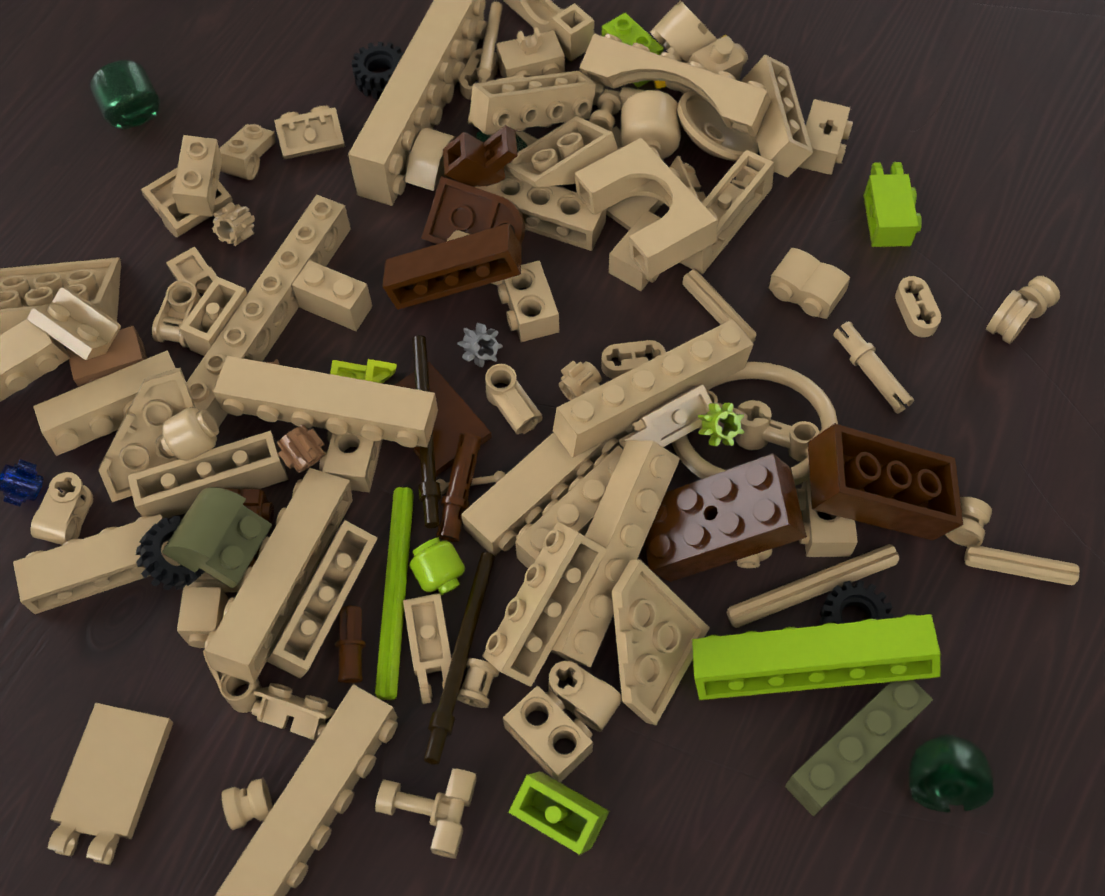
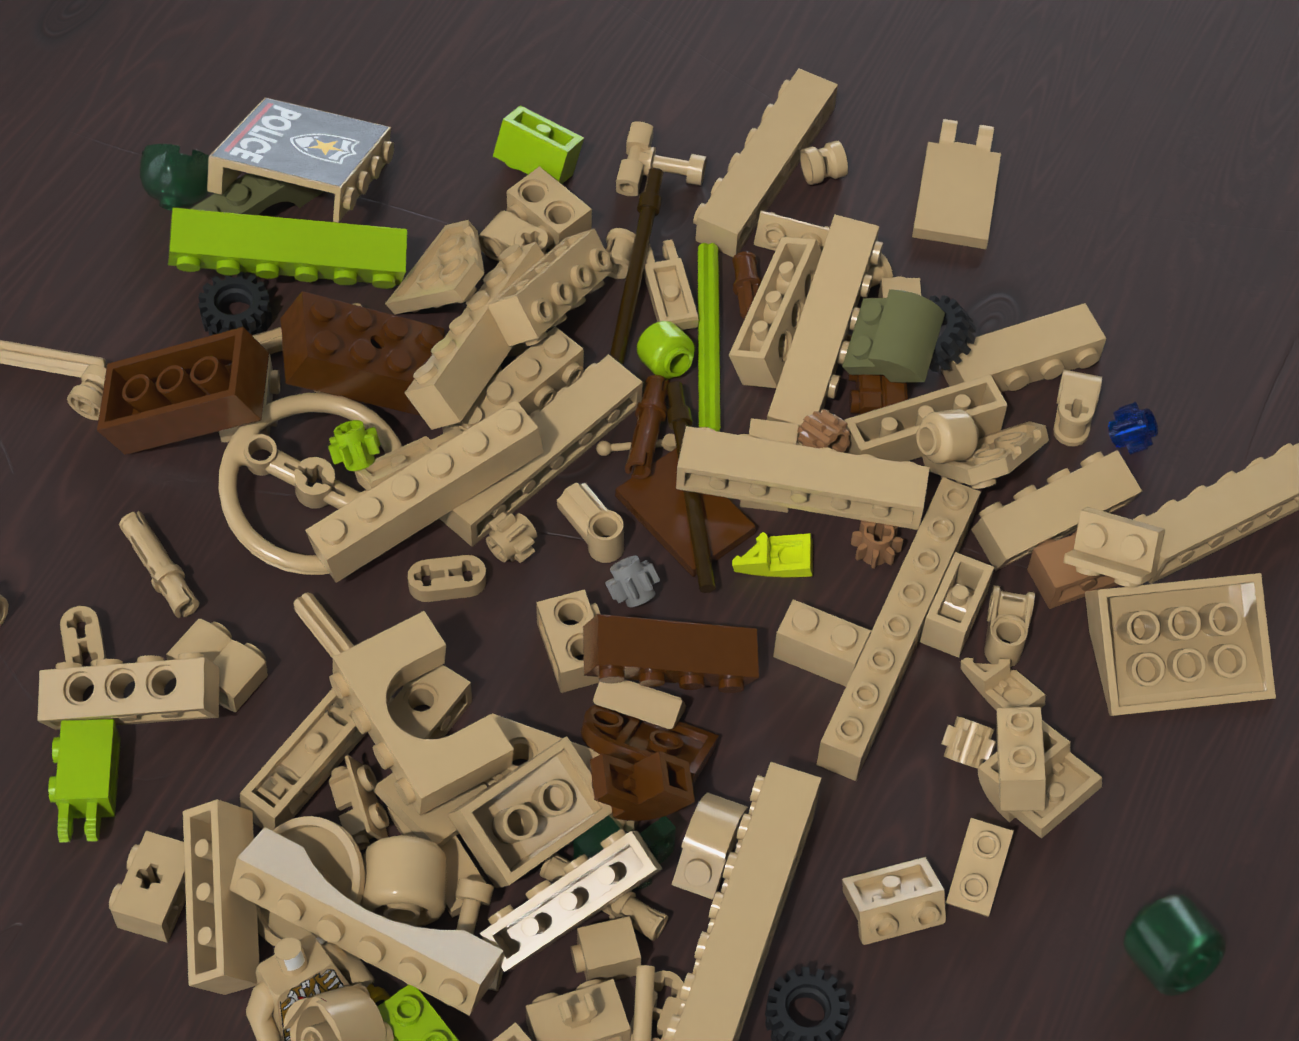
camera: 175 degrees right, 5 degrees down
(817, 776) = (304, 150): none -> panel
(871, 243) = (192, 698): none -> tan brick

